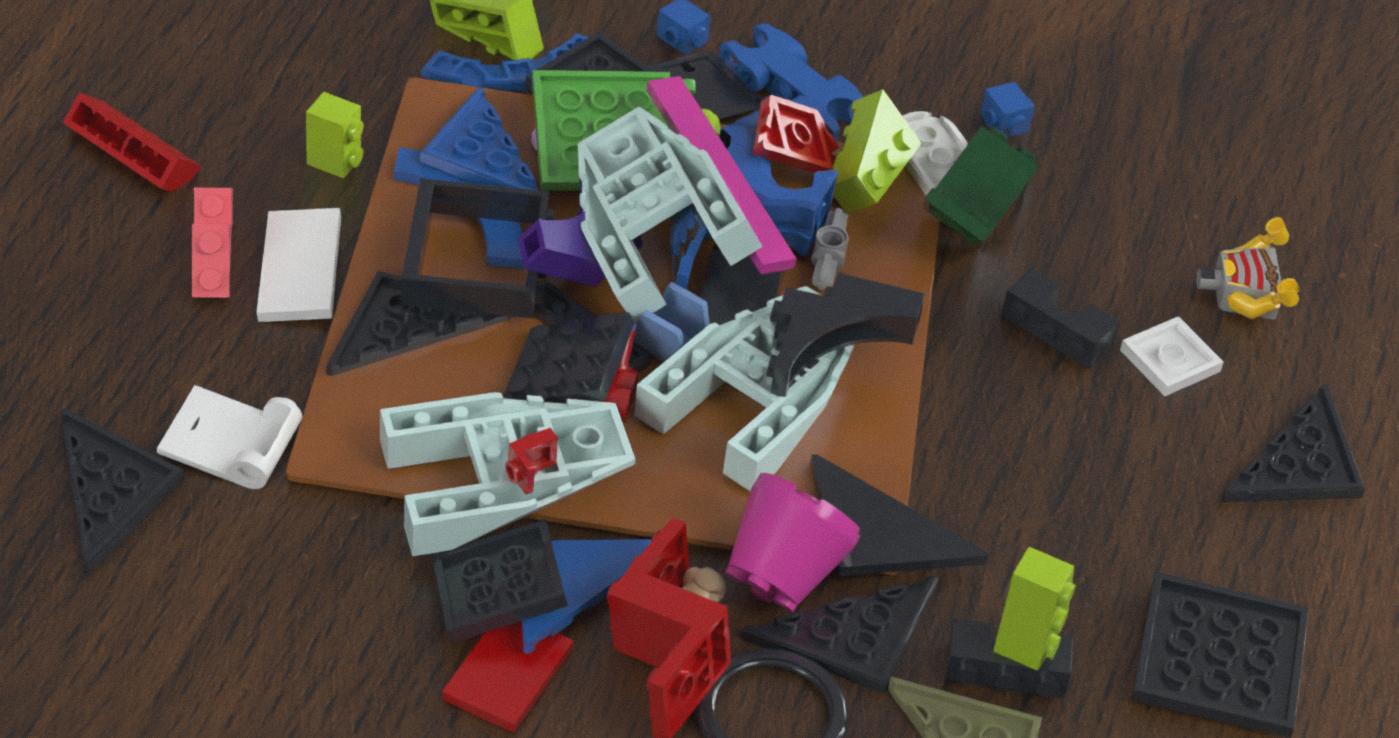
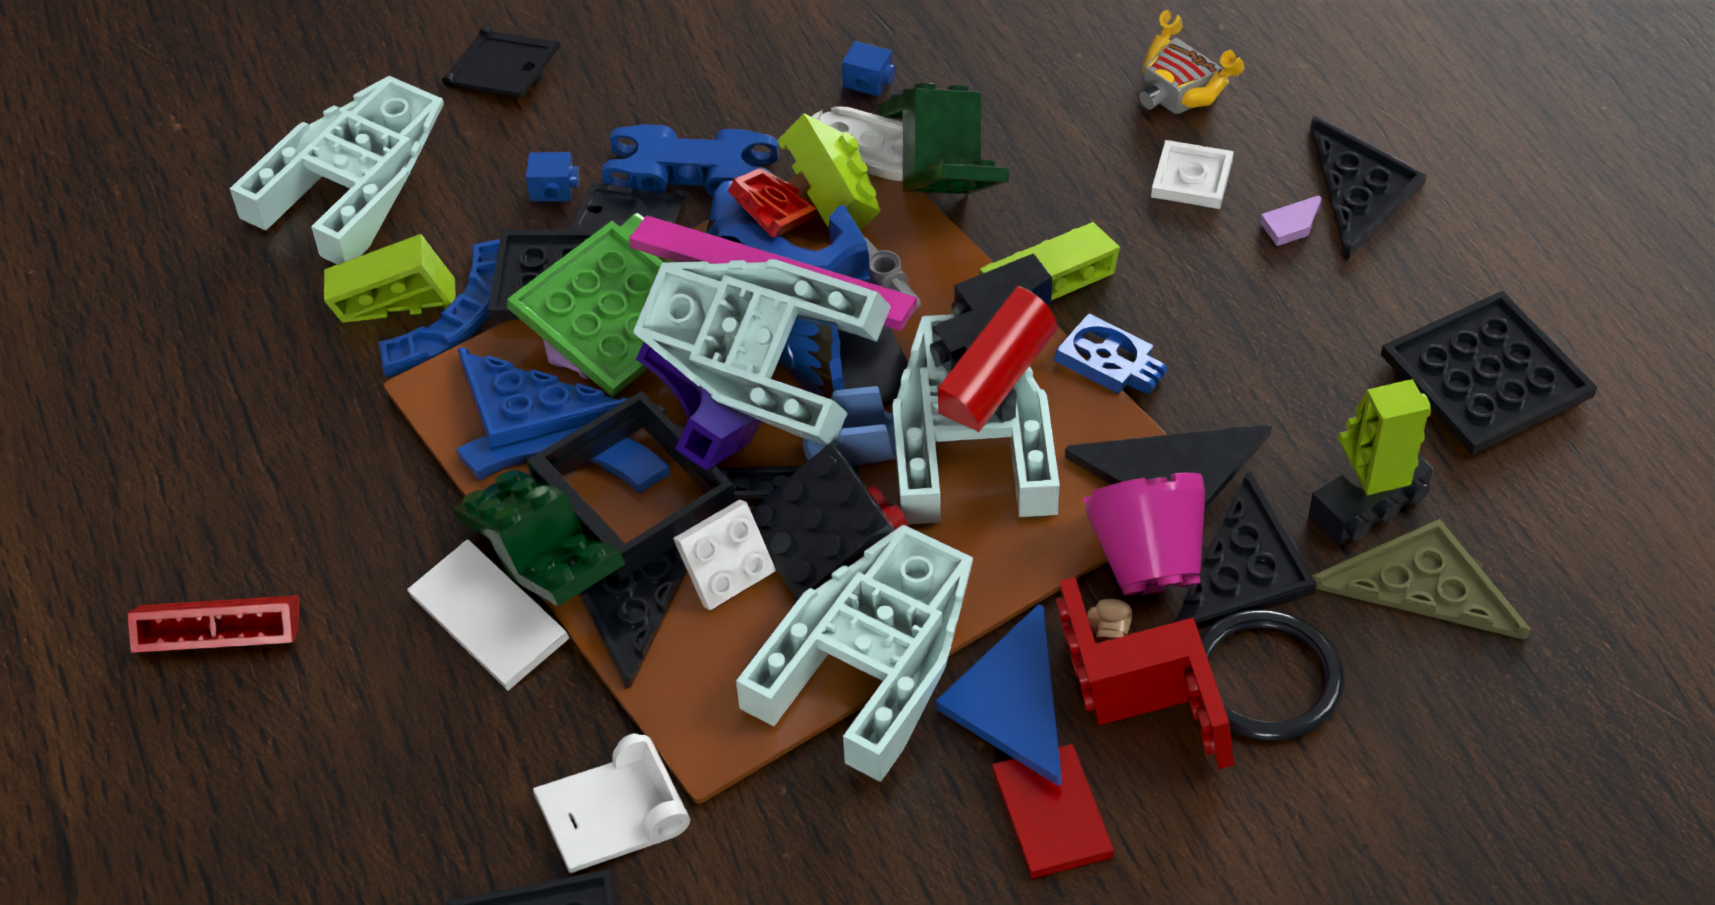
camera: 35 degrees left, 5 degrees up
(212, 242) = (397, 650): coral arch -> none
(334, 135) = (393, 479): lime brick -> none
(372, 232) = (538, 536): none -> dark green bracket
(479, 335) = (724, 554): none -> white plate
(499, 581) = (976, 744): black plate -> none
(529, 456) = (906, 630): red bracket -> none
(795, 335) = (996, 360): none -> red brick
(936, 450) = (1141, 374): none -> piece
(972, 338) = (1072, 258): none -> lime brick
(1080, 335) = (1122, 207): black arch -> none
(1209, 443) = (1291, 221): none -> lavender tile

